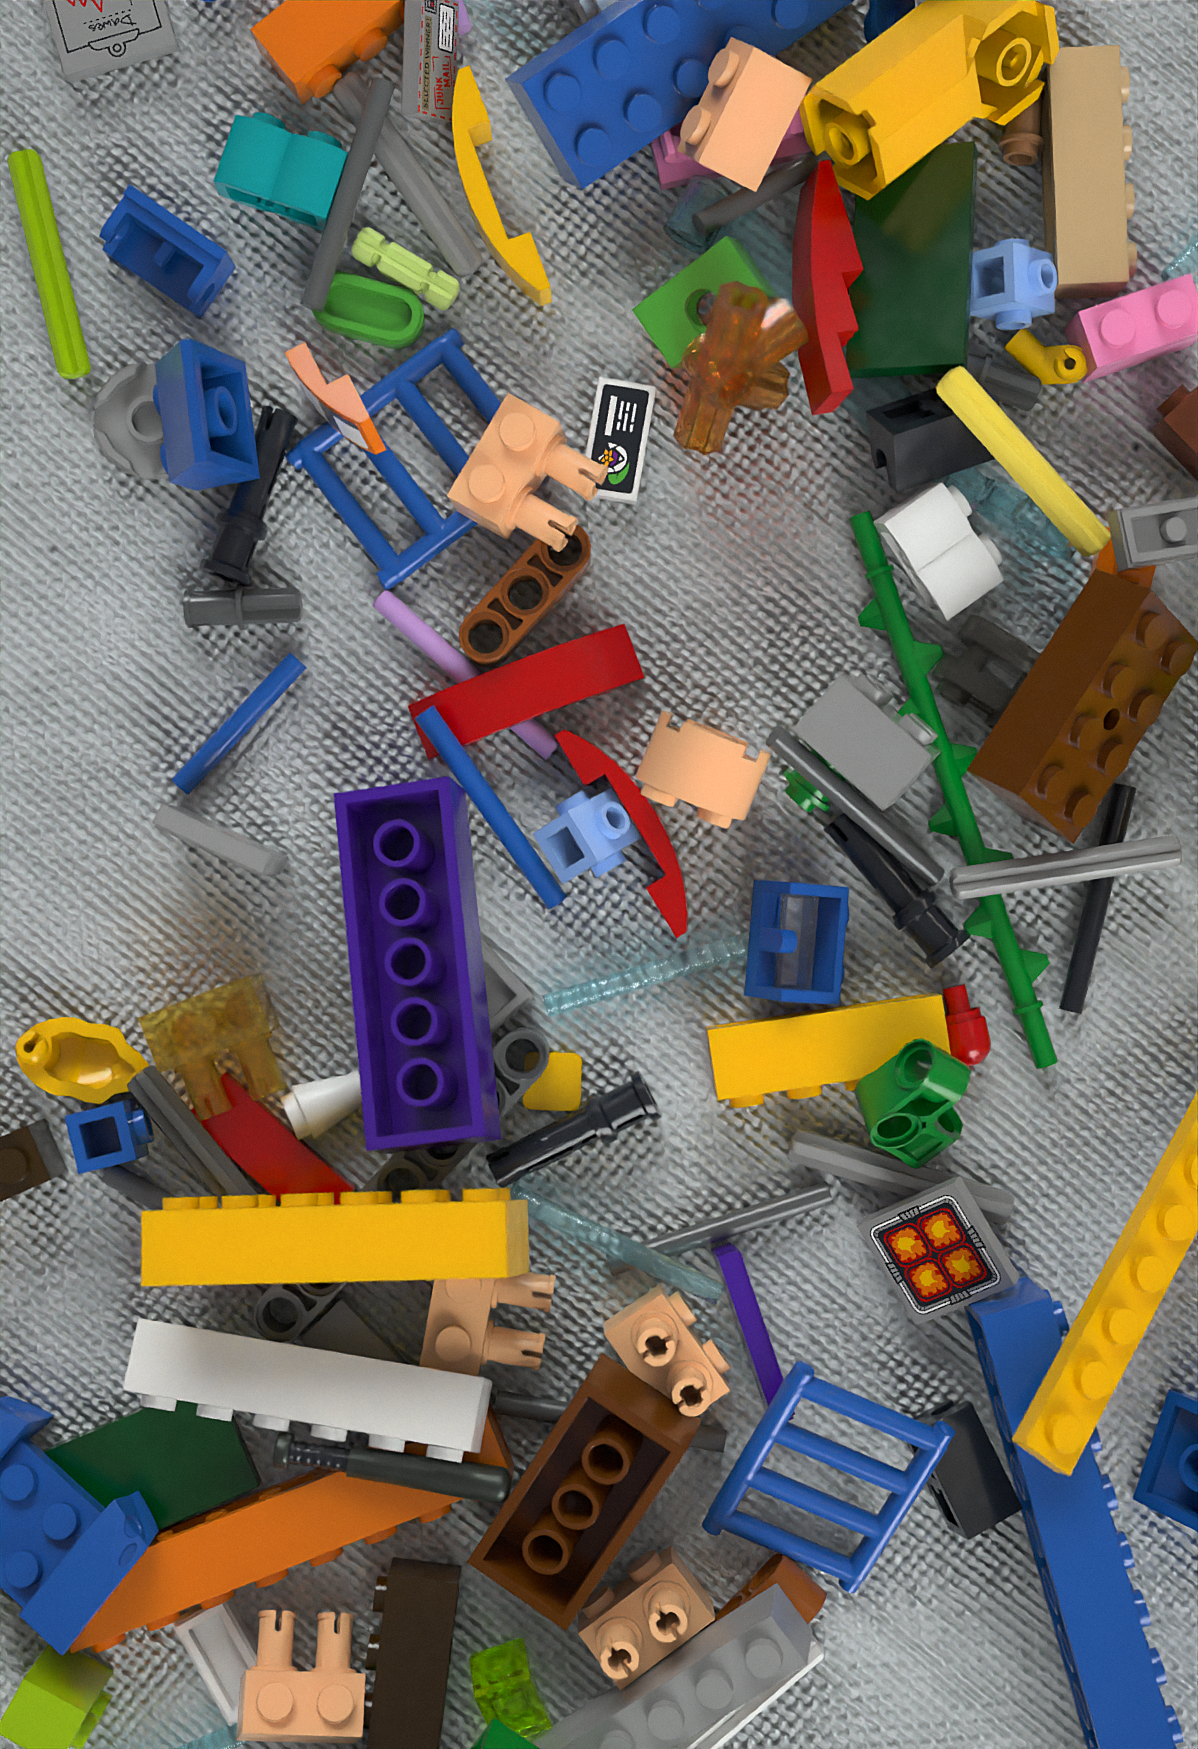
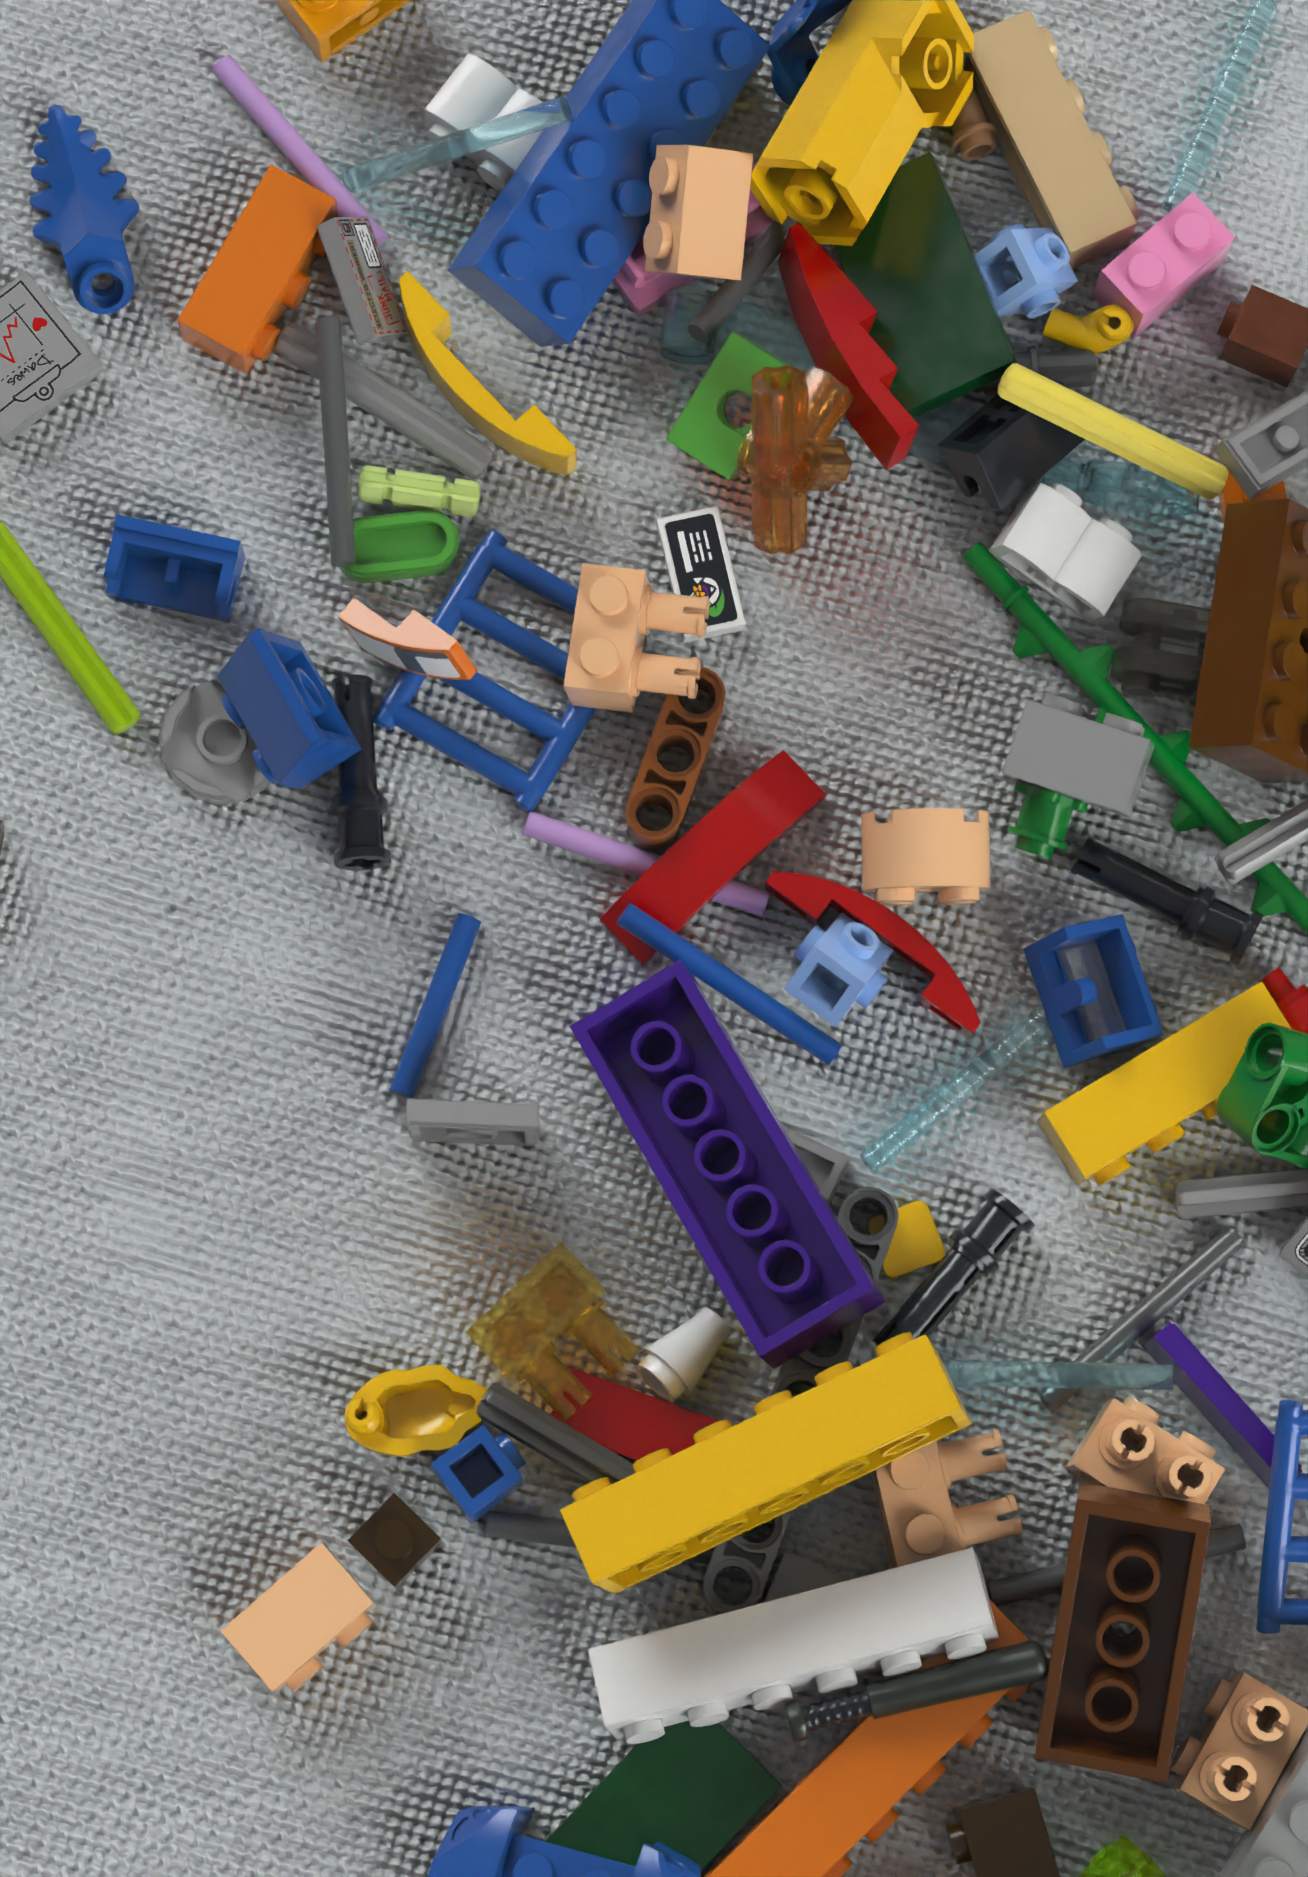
camera: 30 degrees left, 10 degrees down
(242, 606) = (393, 886): dark grey axle -> none
(280, 169) = (260, 444): teal brick -> none
(854, 806) = (1094, 831): dark grey bar -> none

